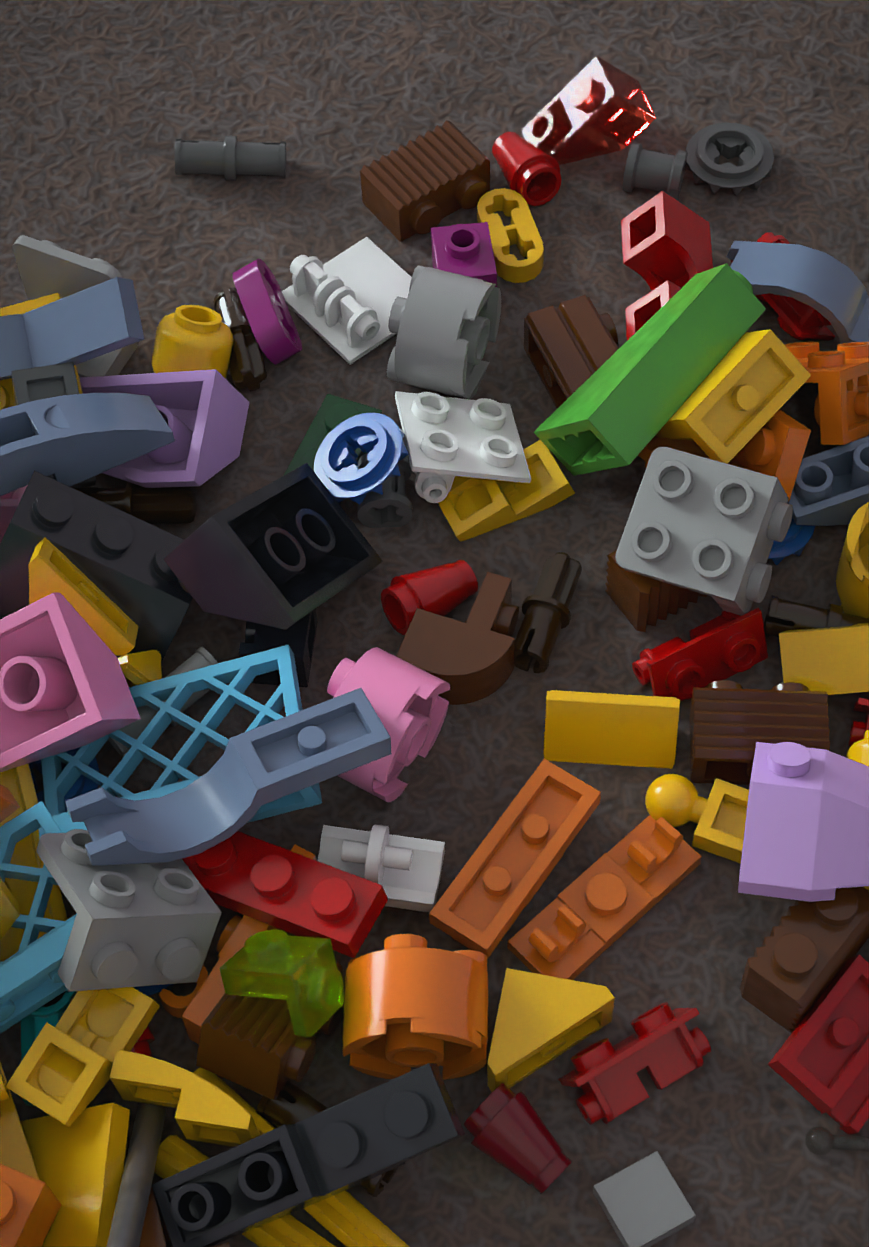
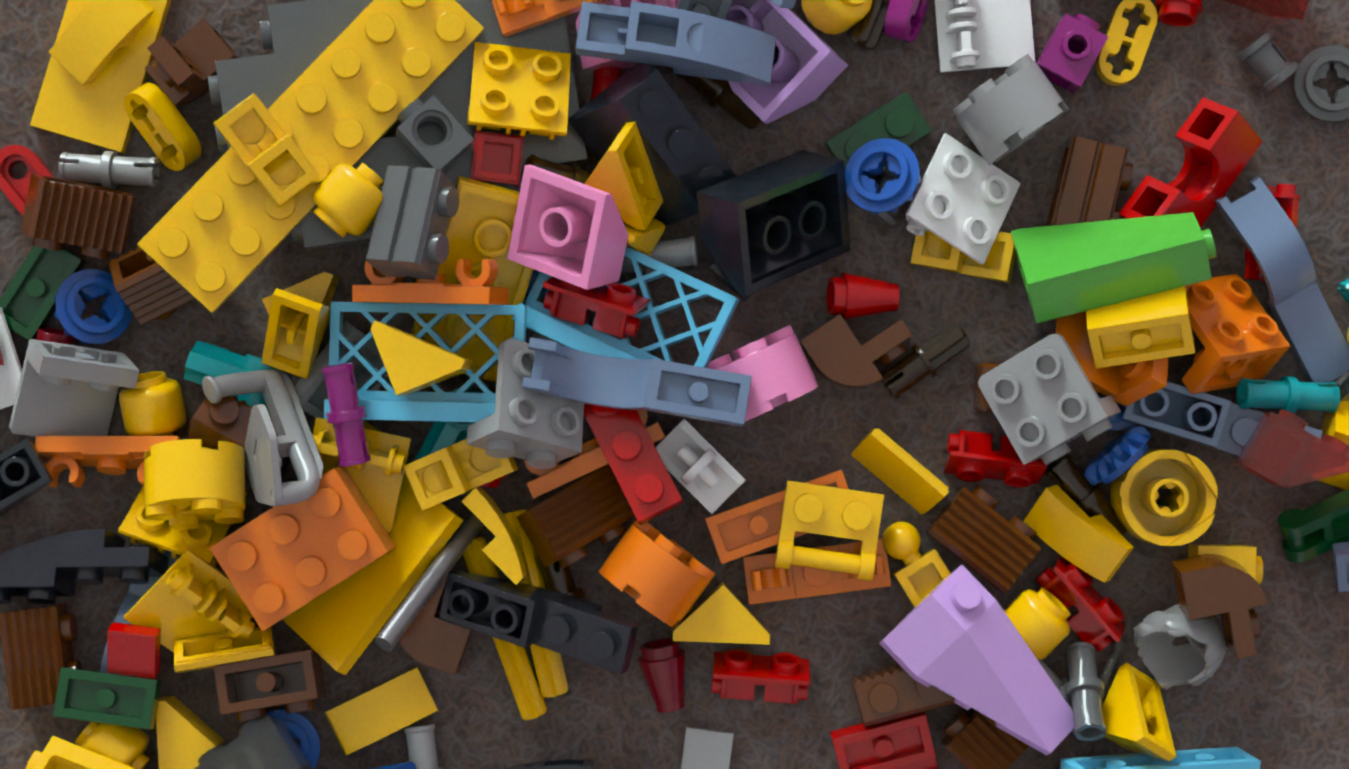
camera: 35 degrees right, 30 degrees up
(151, 744) = (613, 305): none -> red hinge
(291, 970) = (594, 512): clear neon green bracket -> none
(570, 804) = (829, 513): none -> yellow plate
(824, 557) = (1118, 456): none -> blue gear

